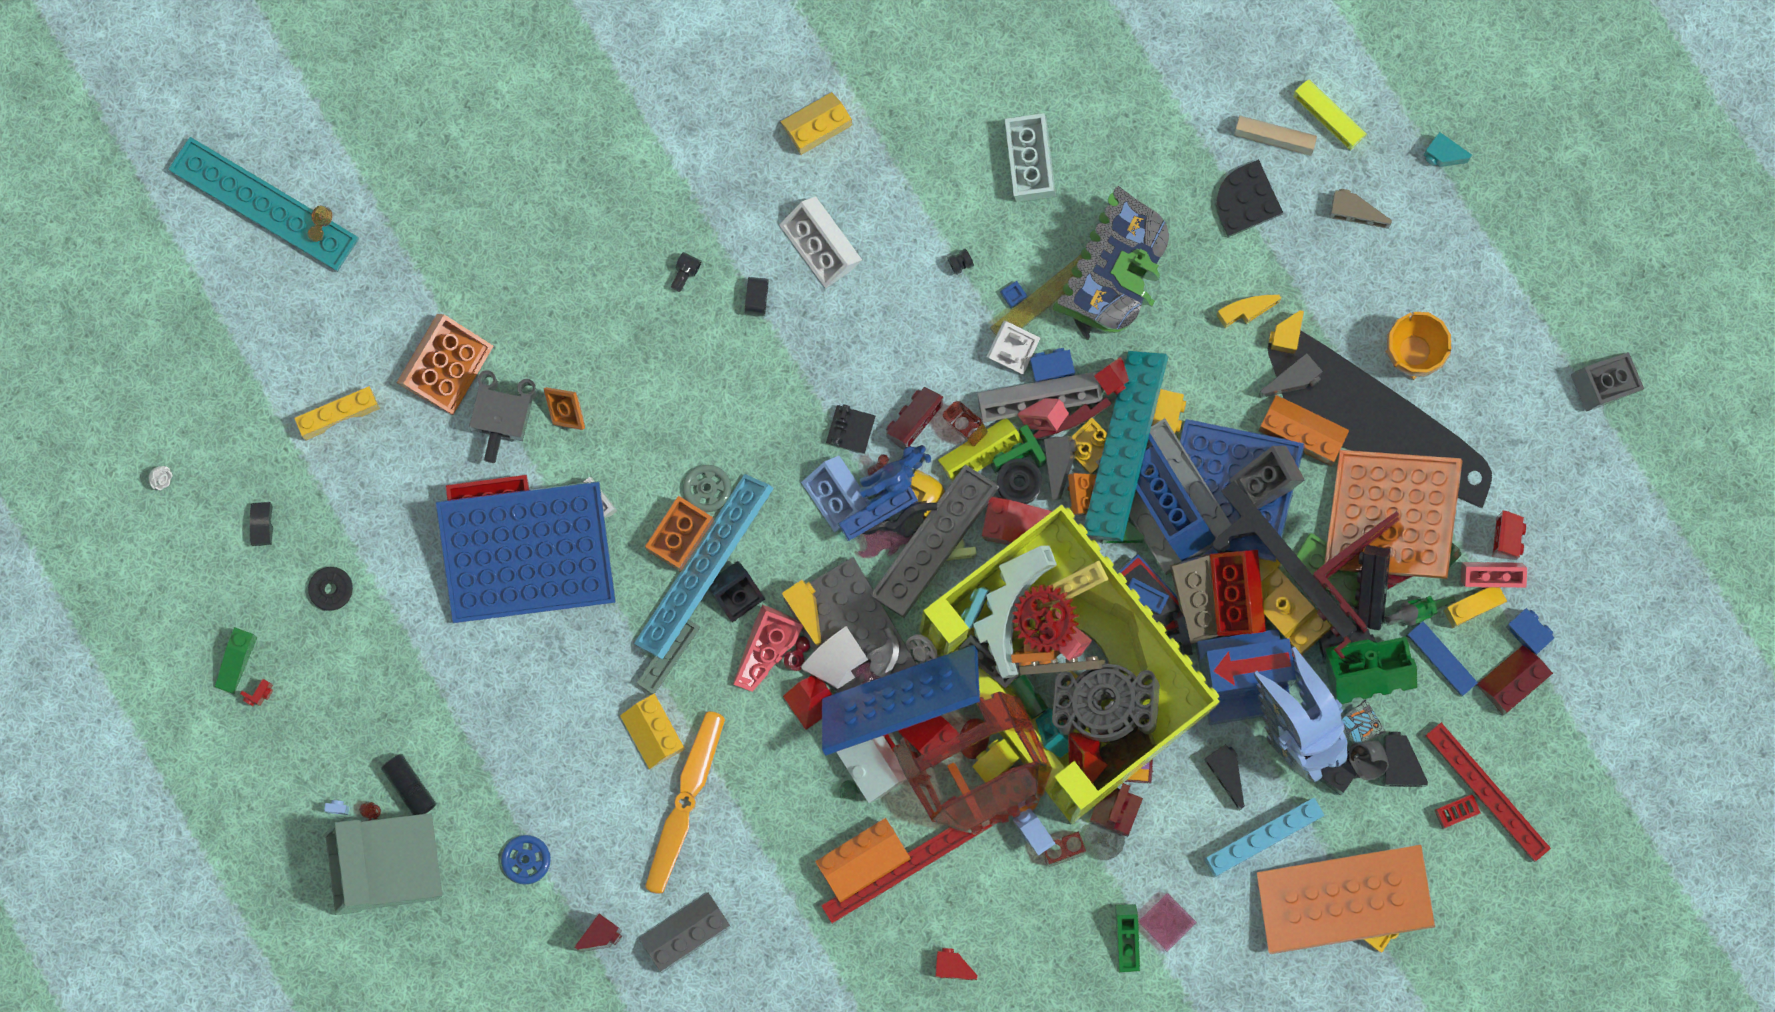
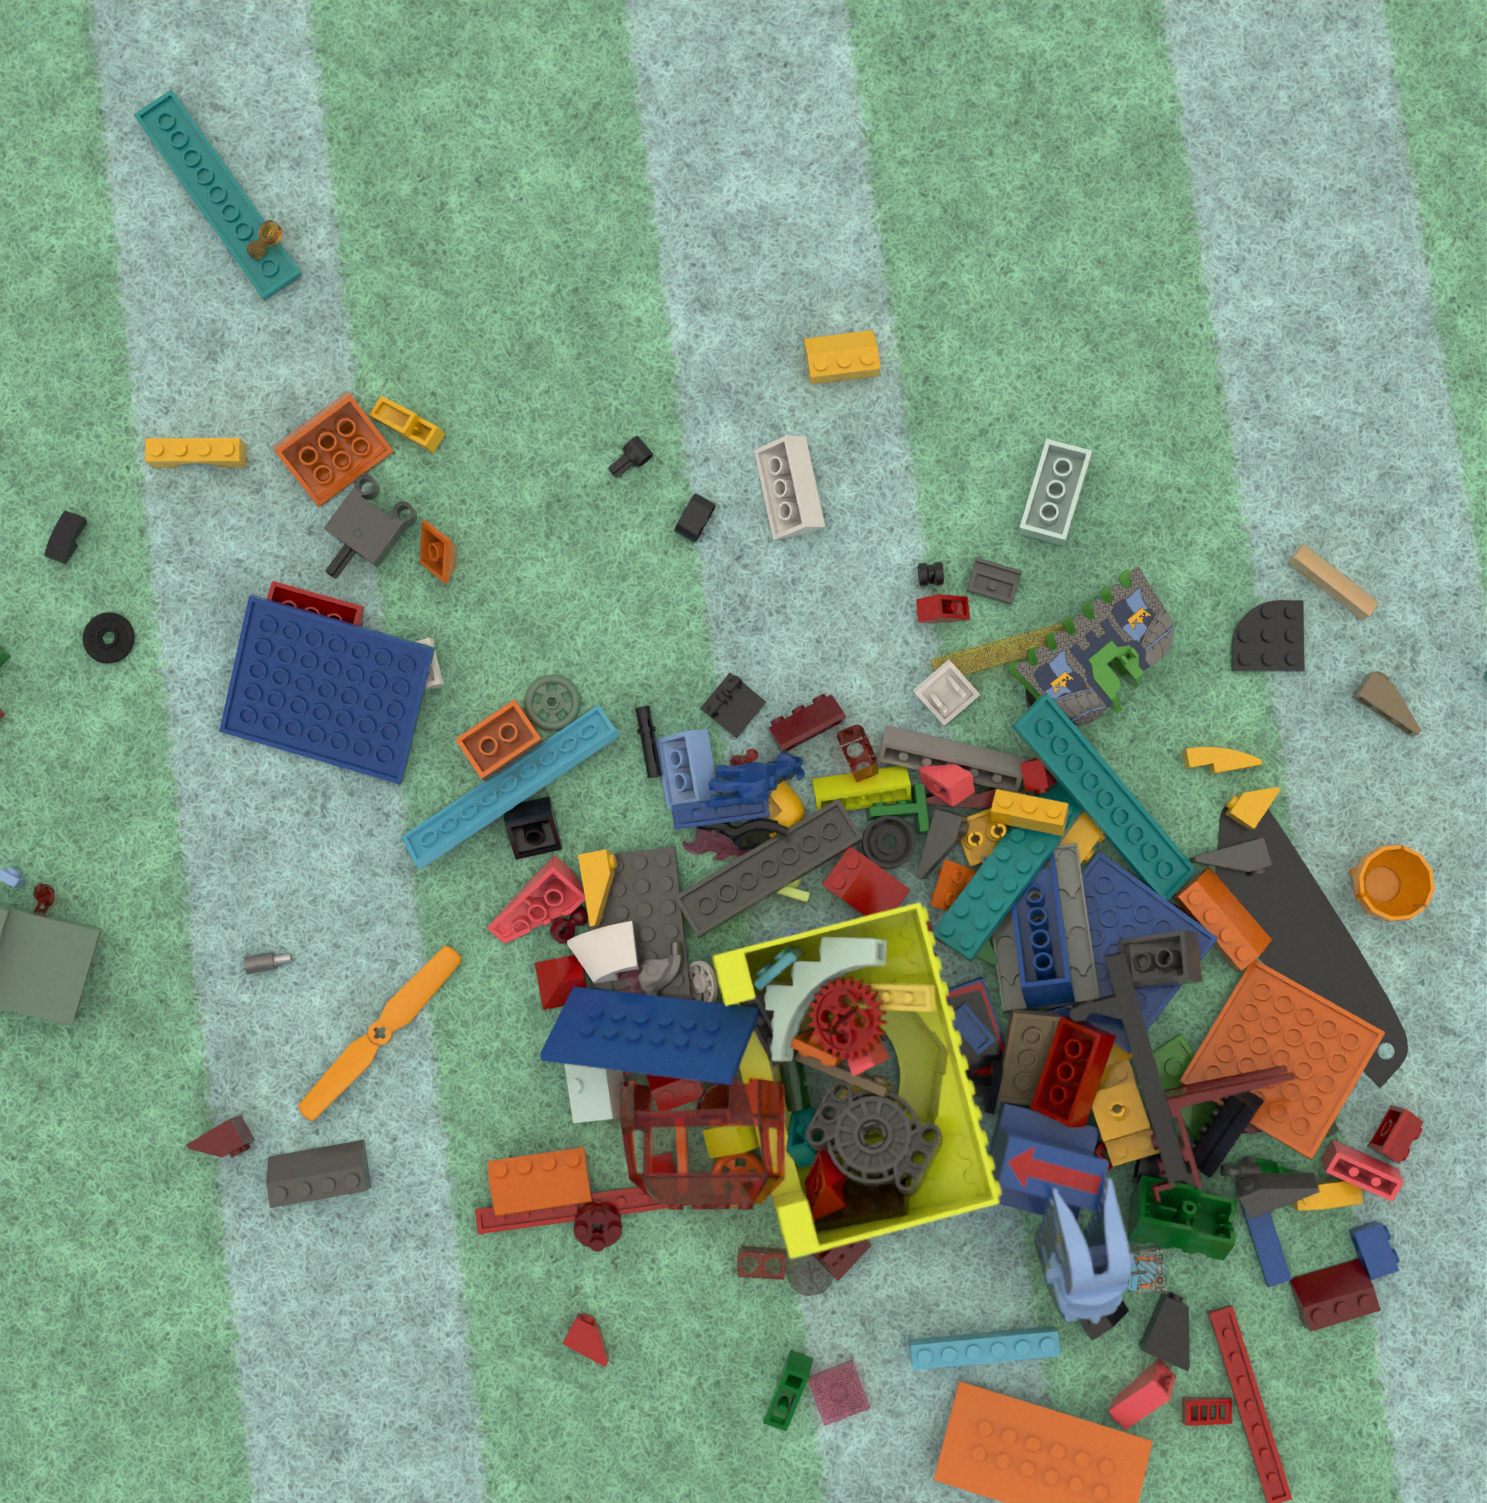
camera: 25 degrees right, 5 degrees up
(404, 781) = (95, 879): black piece -> none
(496, 320) = (407, 424): none -> yellow slope
(541, 866) = (205, 1011): blue plate -> none
(569, 787) = (264, 962): none -> flat silver piece
(652, 731) = (379, 941): yellow slope -> none
(660, 668) = (412, 878): sand green plate -> none
(791, 477) = (648, 741): none -> black pin
(848, 790) = (558, 1097): clear green plate -> none
(931, 883) = (597, 1238): none -> dark red plate
(982, 284) = (942, 609): none -> red slope
(1012, 246) = (994, 581): none -> dark grey plate
(1013, 294) = (972, 634): blue tile -> none
(1033, 831) = (736, 1234): light blue slope -> none
(1052, 366) = (979, 730): blue brick -> none
(1117, 409) = (1029, 812): none -> yellow brick
(1169, 374) = (1103, 797): none -> teal plate
(1226, 770) = (975, 1254): black slope -> none
(1329, 114) = (1401, 584): neon yellow brick -> none
(1371, 759) = (1138, 1317): dark grey piece -> none
(1401, 819) = (1143, 1395): none -> coral slope
(1428, 619) = (1274, 1190): none -> dark grey slope

